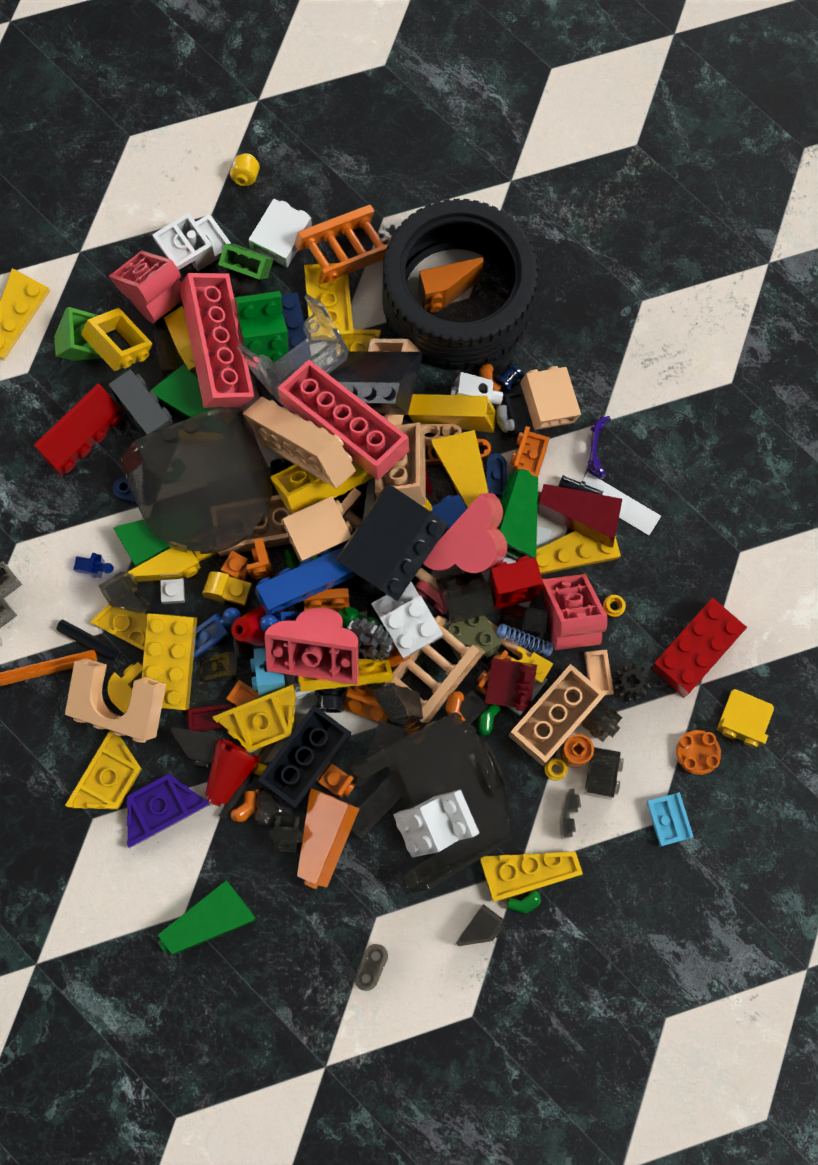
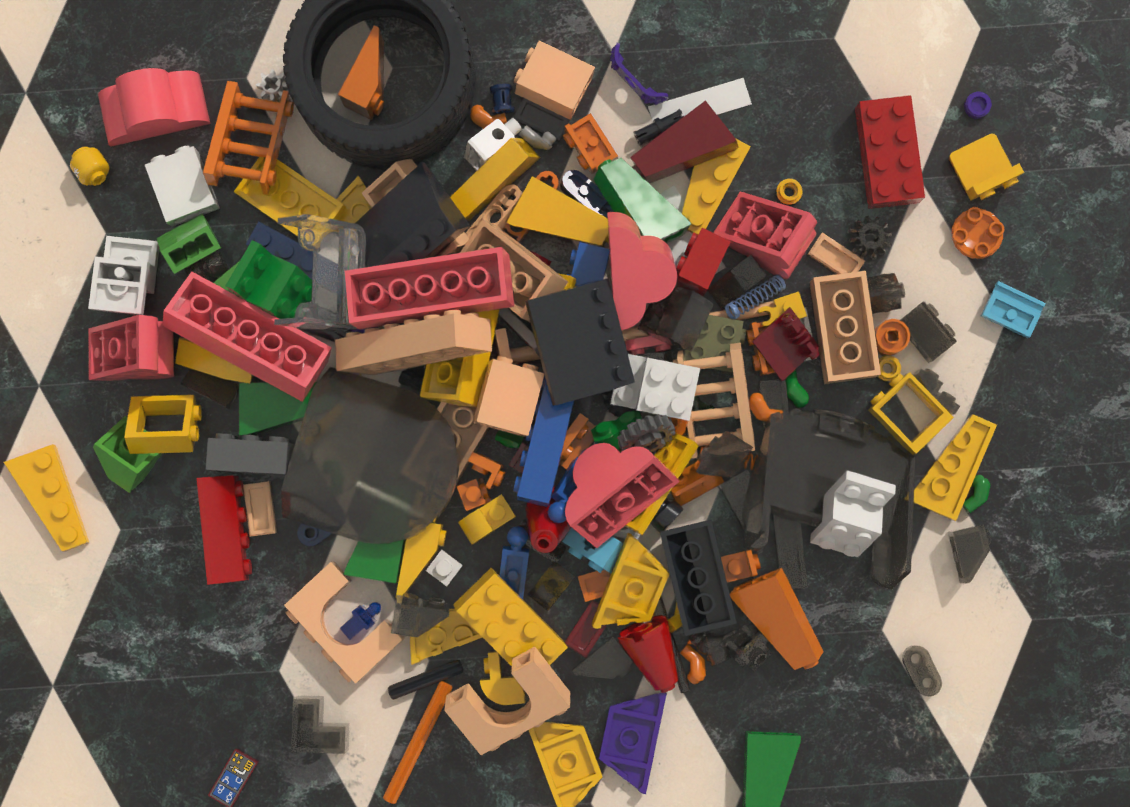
camera: 40 degrees left, 10 degrees up
(72, 527) = (309, 609): none -> light nougat arch
(113, 445) = (260, 508): none -> light nougat tile
(316, 174) = (152, 104): none -> coral brick
(550, 783) = (942, 417): none -> yellow window
(782, 680) = (977, 105): none -> dark purple tile

